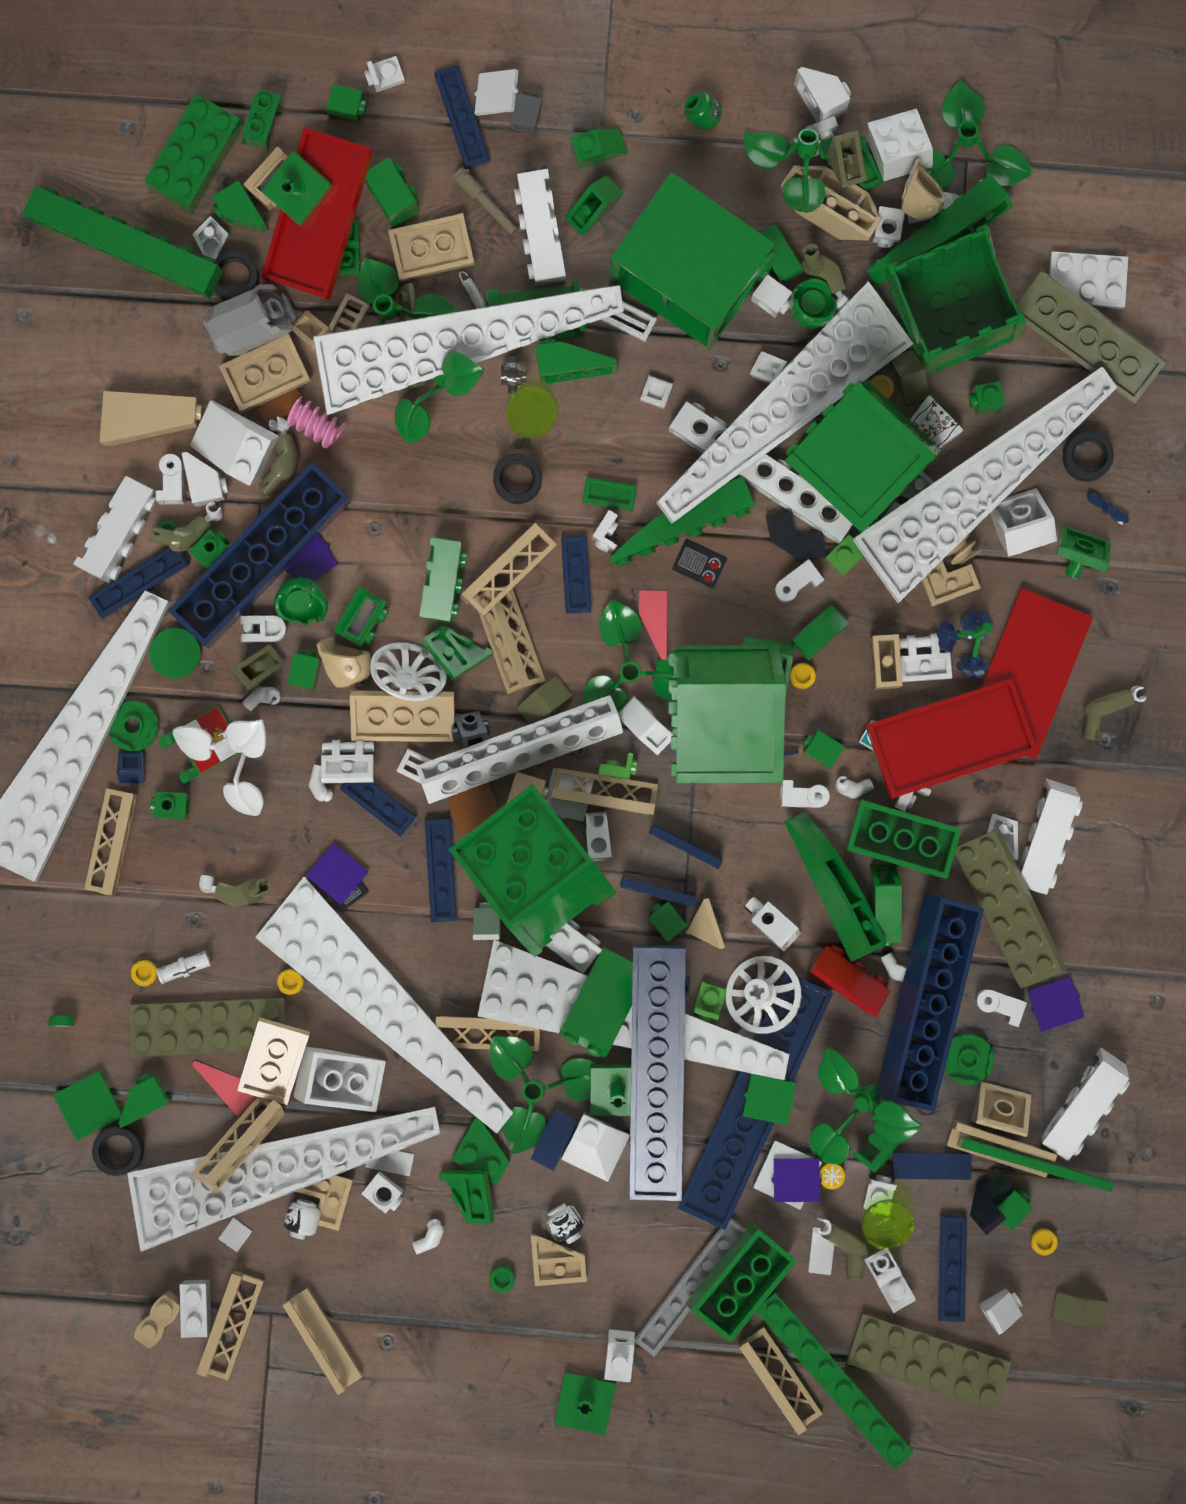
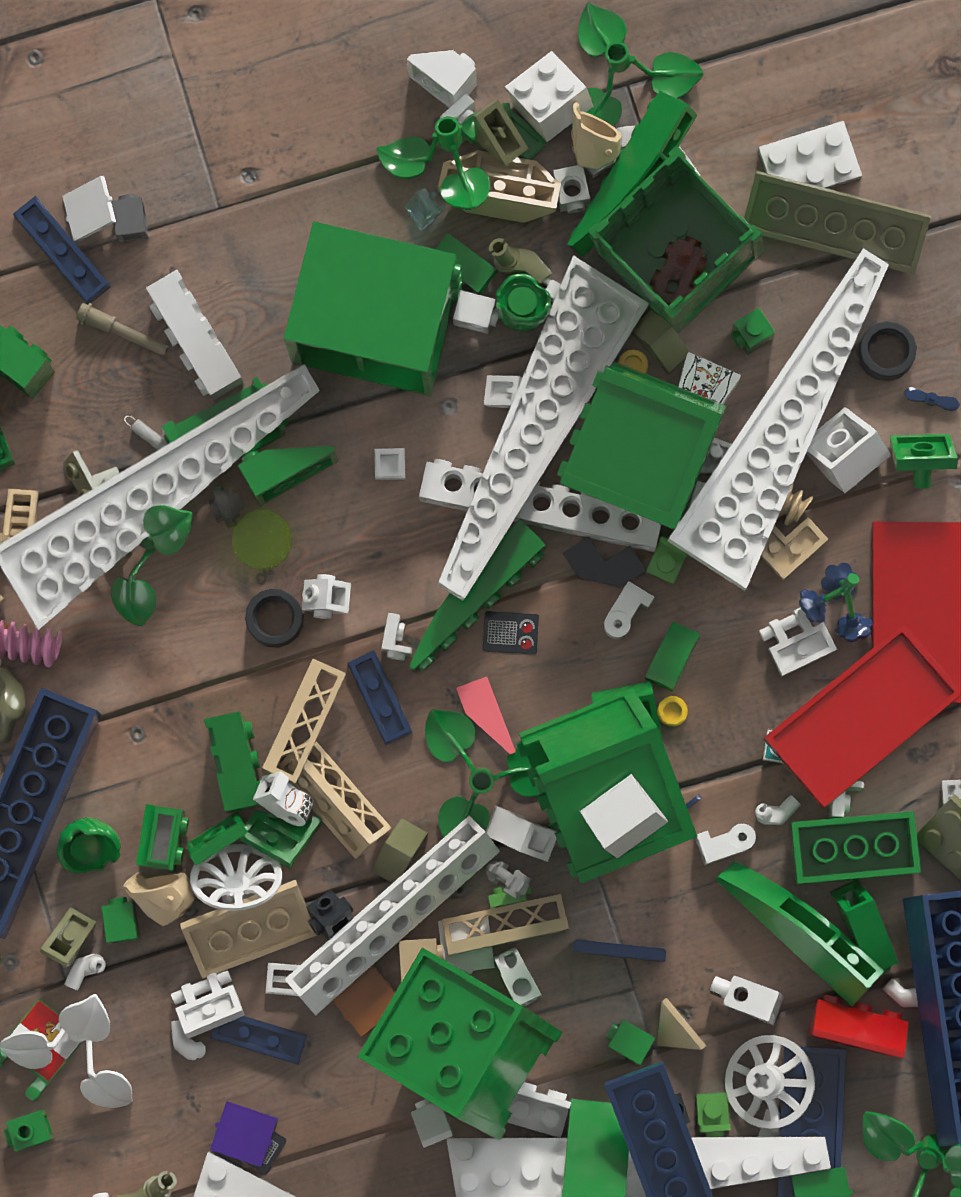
camera: 15 degrees left, 5 degrees down
(271, 629) = (66, 890): white plate -> none
(313, 561) = (84, 796): dark purple piece -> none
(380, 281) = (41, 460): green plant -> none
(404, 635) = (216, 838): none -> green tile
(431, 247) = (82, 403): tan plate -> none
(440, 870) = (357, 1084): dark blue tile -> none
(469, 625) = (283, 799): none -> white leg
(564, 477) = (326, 596): none -> white brick
(594, 205) = (242, 288): green slope -> none
(597, 146) = (221, 224): green slope -> none
(609, 494) = (382, 595): green tile -> none
(625, 763) = (515, 883): none -> light grey bar
(647, 328) = (352, 410): white tile -> none
(658, 892) = (608, 1013): dark blue tile -> none
(703, 110) = (321, 142): green head -> none
(730, 744) = (623, 817): none -> white slope
(763, 196) = (423, 208): none -> clear light blue tile
(822, 749) = (726, 783): green brick -> none
(886, 662) = (757, 660): tan brick -> none
(954, 320) = (682, 263): none -> clear red brick

